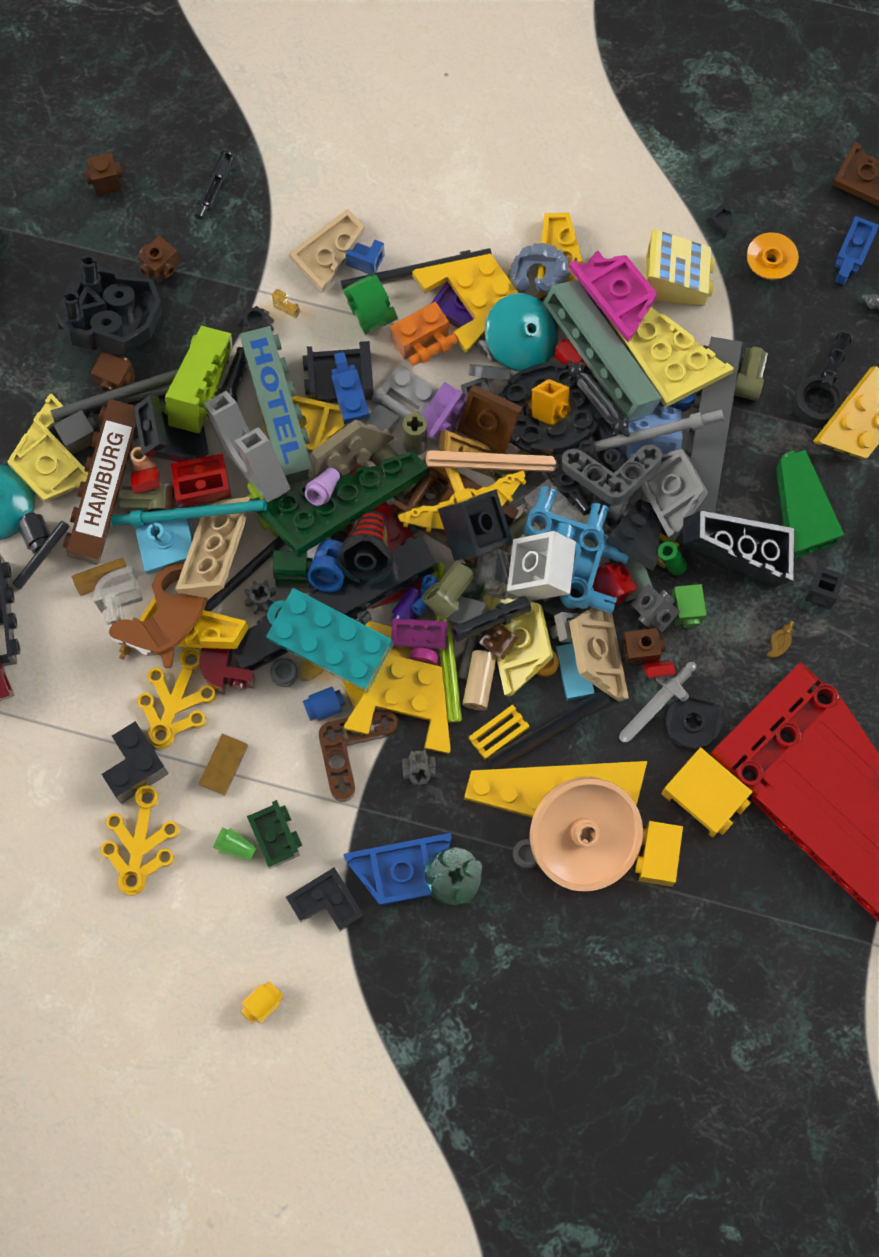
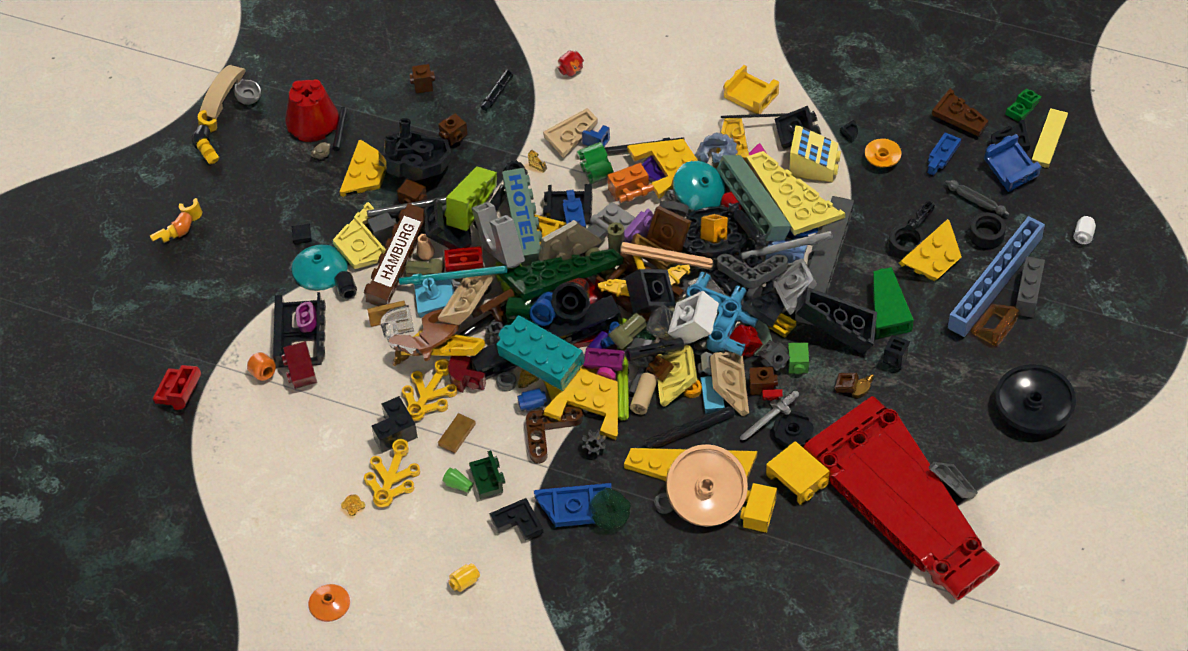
camera: 10 degrees right, 20 degrees down
(37, 335) = (363, 170): none -> yellow wing
(41, 554) = (349, 294): black bar -> none
(82, 895) = (351, 500): none -> clear yellow plate
(90, 1060) = (331, 609): none -> orange dish
(145, 480) = (425, 256): red tile -> none
(252, 555) = (494, 307): none -> reddish brown tile
(314, 133) = (570, 63): none -> red head
(320, 488) = (546, 260): lavender cone -> none
(517, 717) = (651, 425): yellow tile -> none
(575, 163) = (750, 91): none -> yellow panel
(617, 290) = (768, 161): dark pink wing -> none
(628, 200) = (753, 115): none -> black piece
(644, 215) = (787, 123): none -> black plate
(672, 558) = (788, 325): green cylinder -> none
(749, 379) = (858, 226): olive piece -> none
(758, 638) = (846, 382): none -> reddish brown tile

